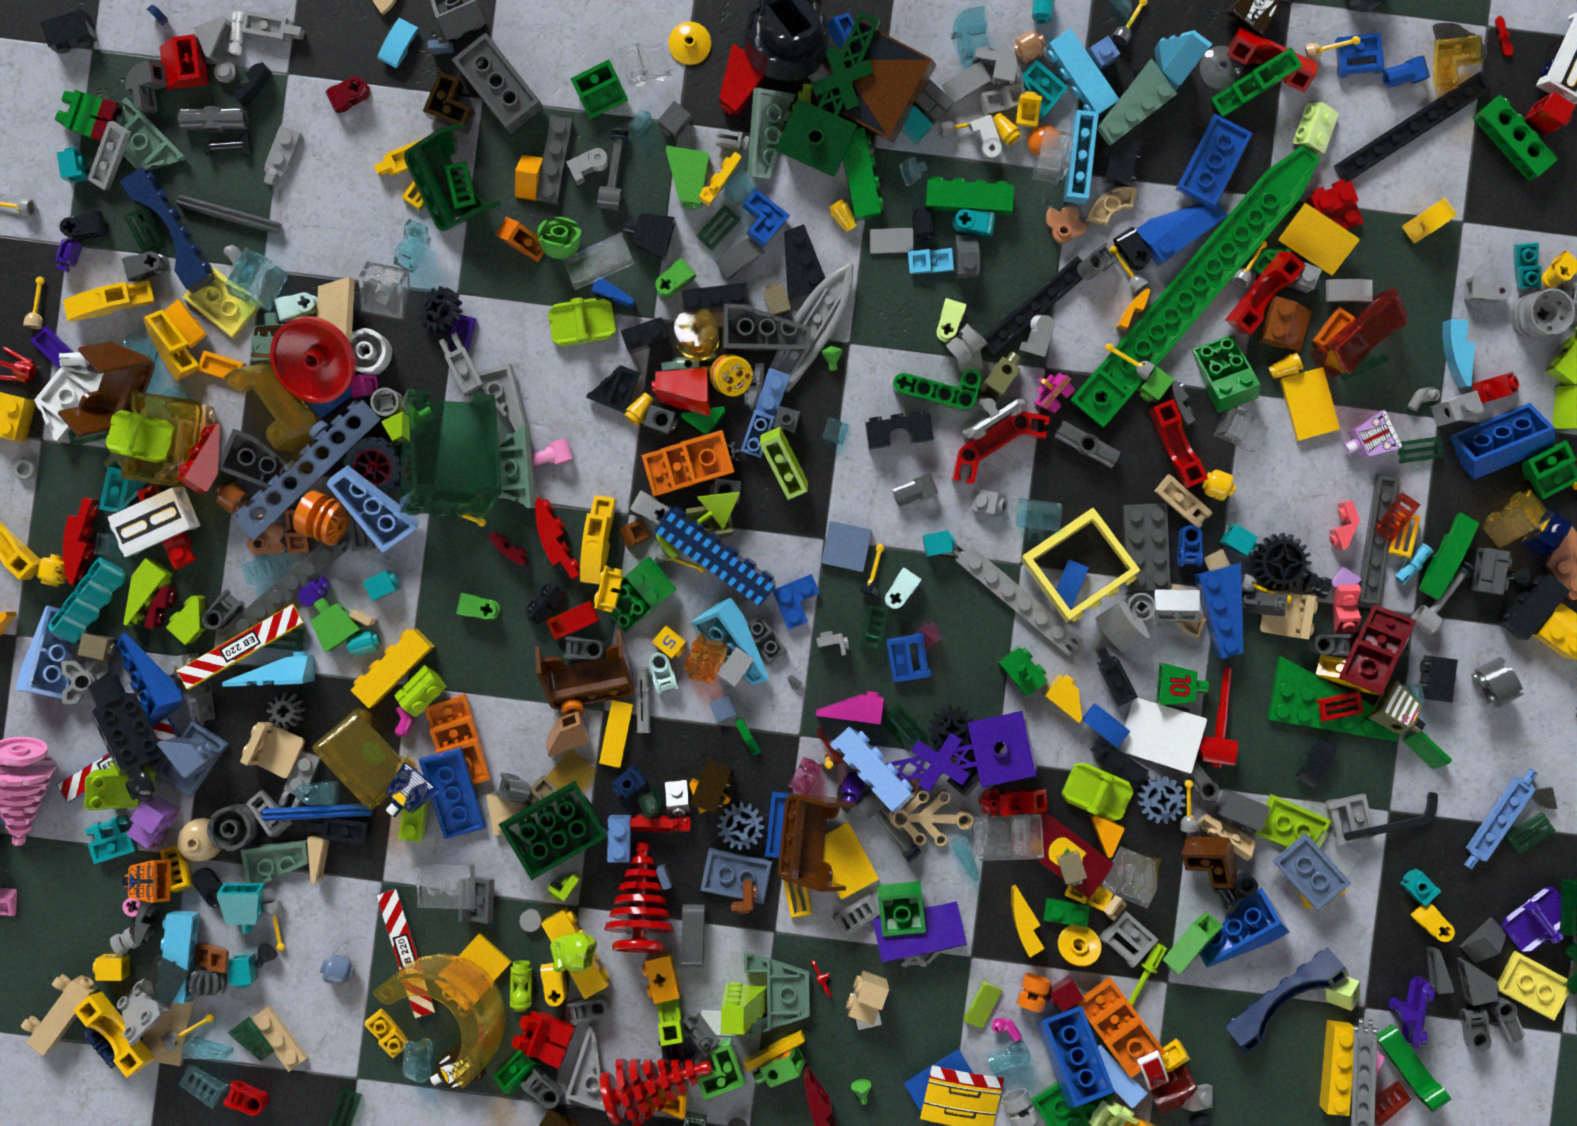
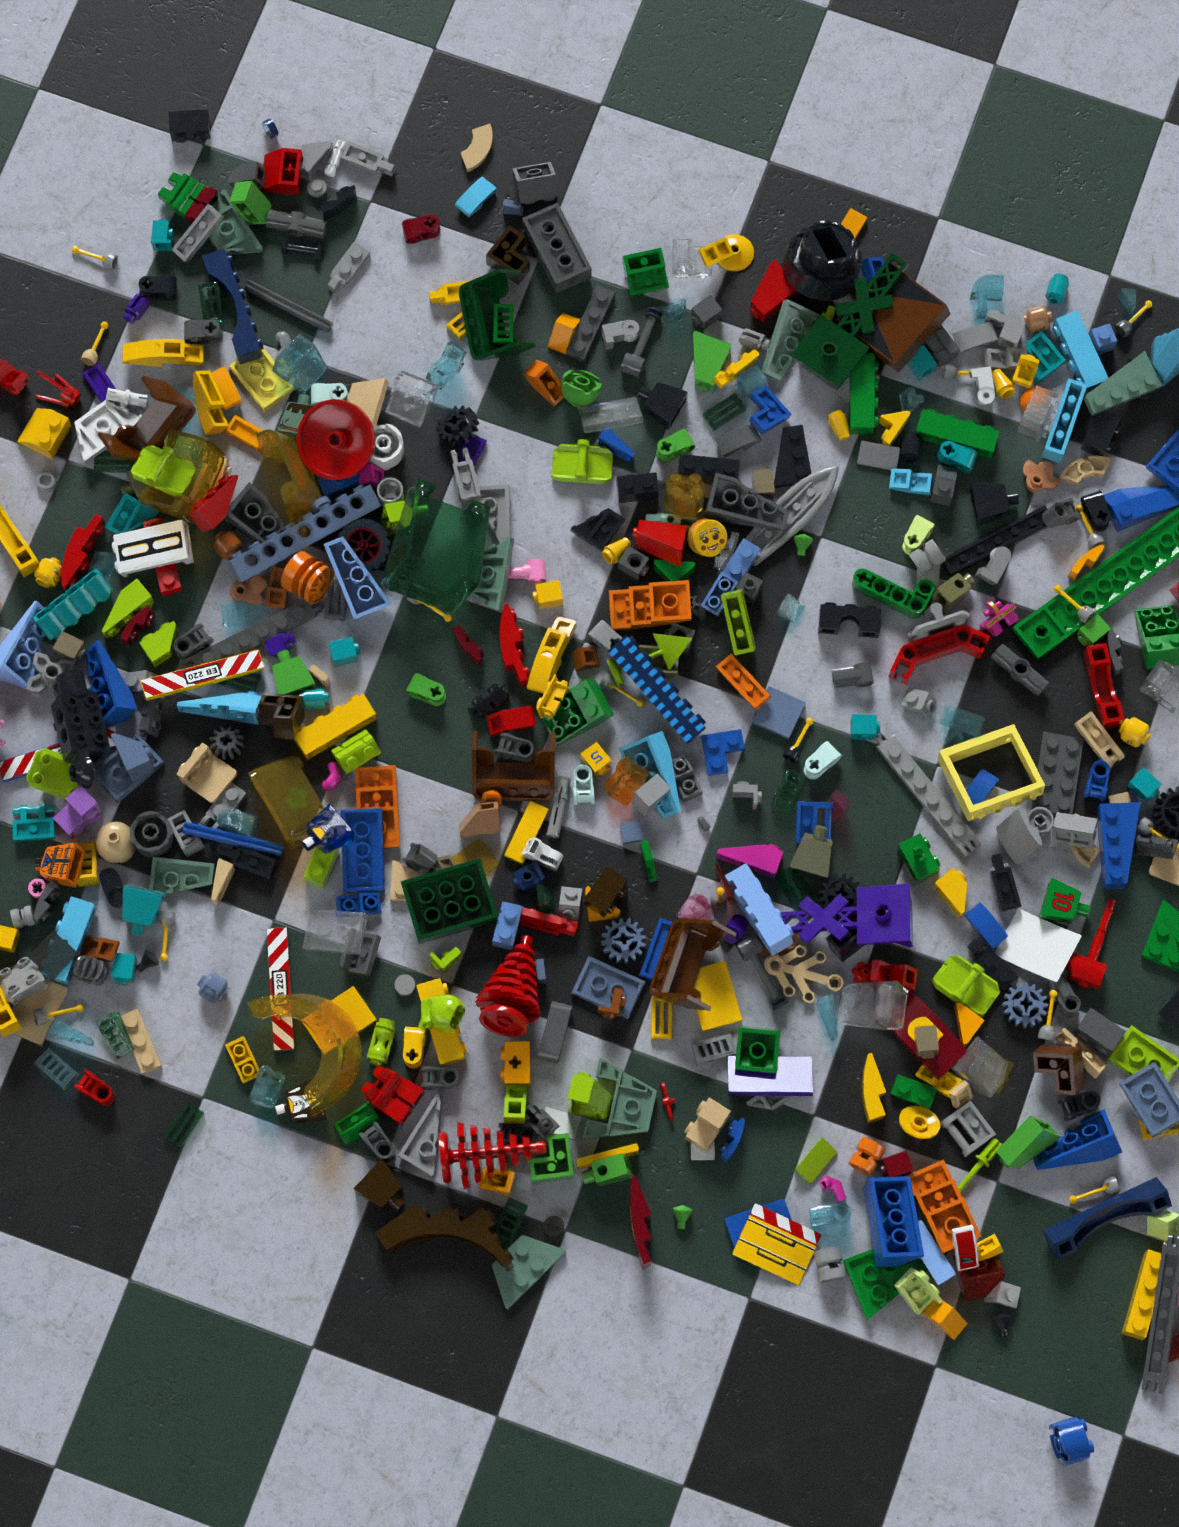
camera: 20 degrees right, 15 degrees down
(154, 108) = (250, 202): none -> bright green brick
(334, 671) = (283, 713): none -> dark brown brick
(463, 848) = (363, 902): none -> blue slope
(579, 474) = (548, 594): none -> yellow brick
(637, 755) = (542, 854): none -> white leg
(669, 50) = (716, 252): none -> yellow slope
(803, 524) = (743, 682): none -> orange plate
(897, 998) = (735, 1134): none -> blue slope
(901, 200) = (894, 423): none -> yellow slope
(914, 692) = (814, 853): none -> olive torso
(1020, 265) = (991, 501): none -> black torso
(1280, 964) = (1109, 1186): none -> hinge

